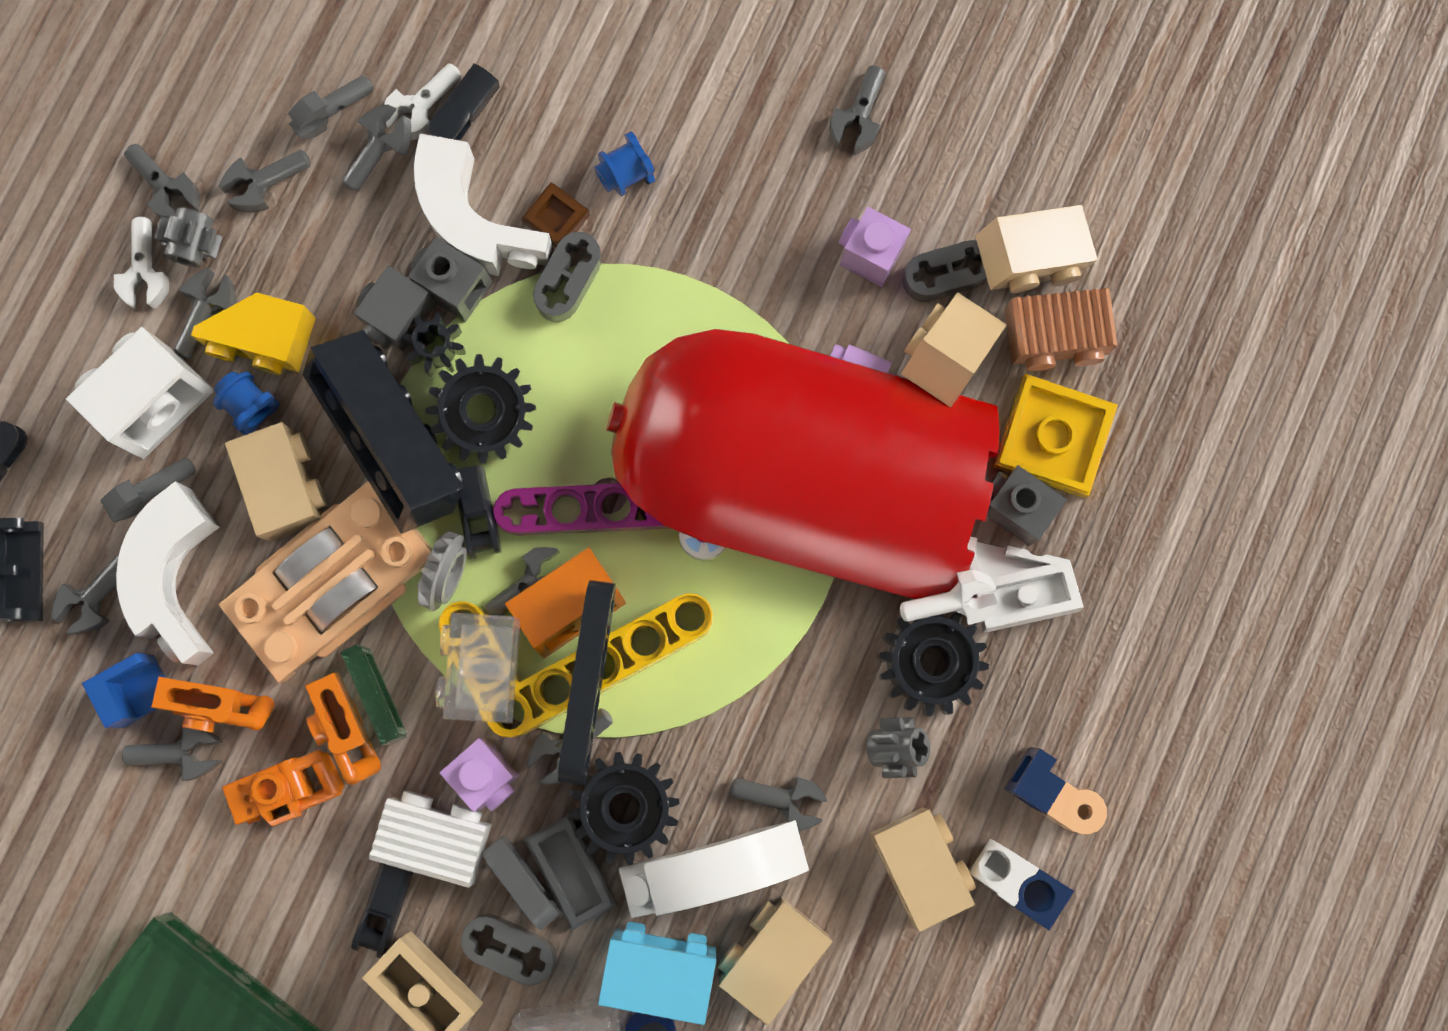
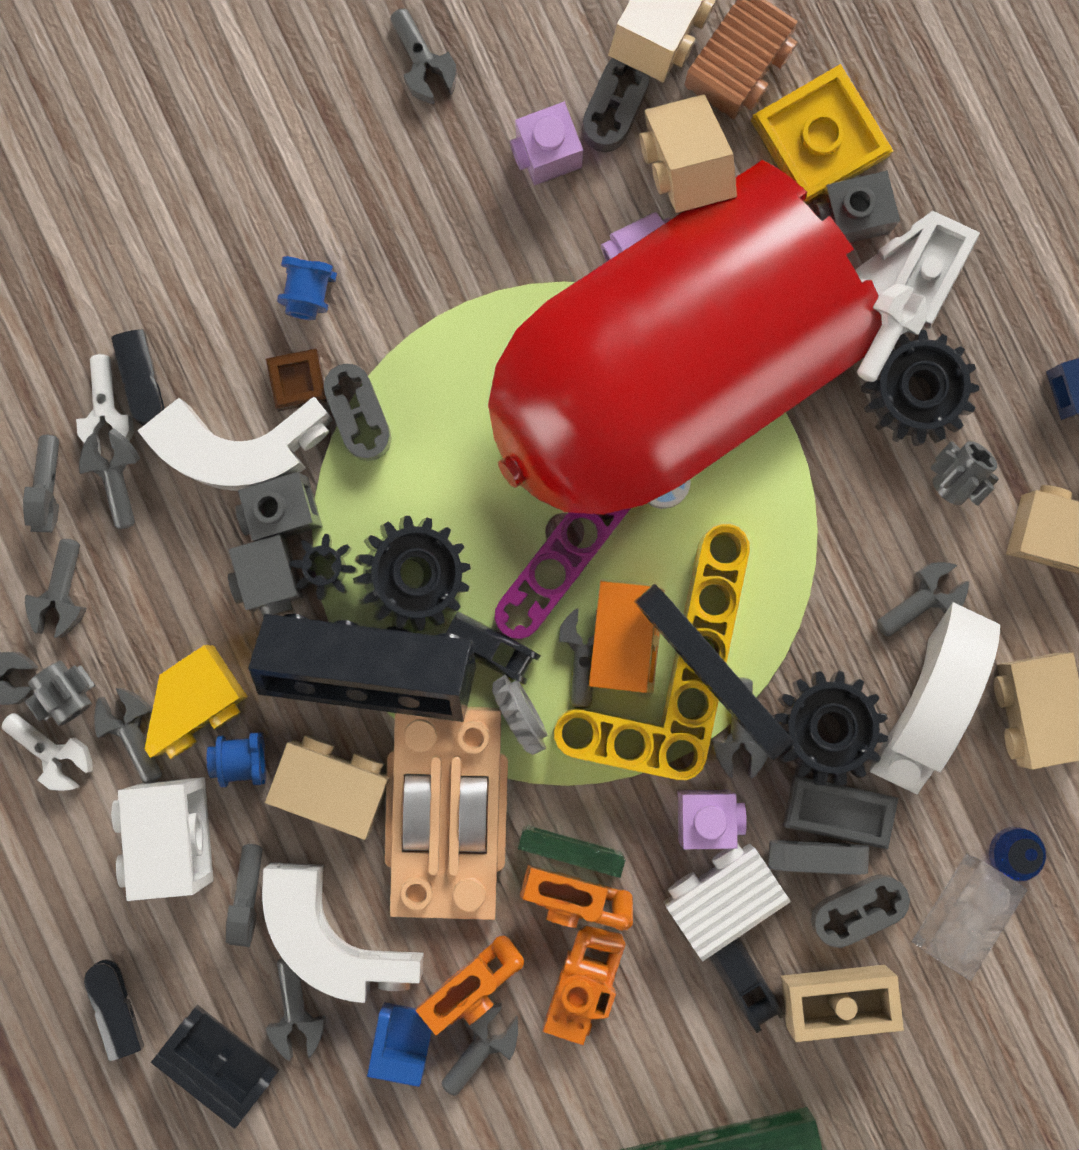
camera: 45 degrees left, 5 degrees up
(479, 667) = (632, 748): clear brick -> none
(658, 974) = (985, 808): medium azure container -> none

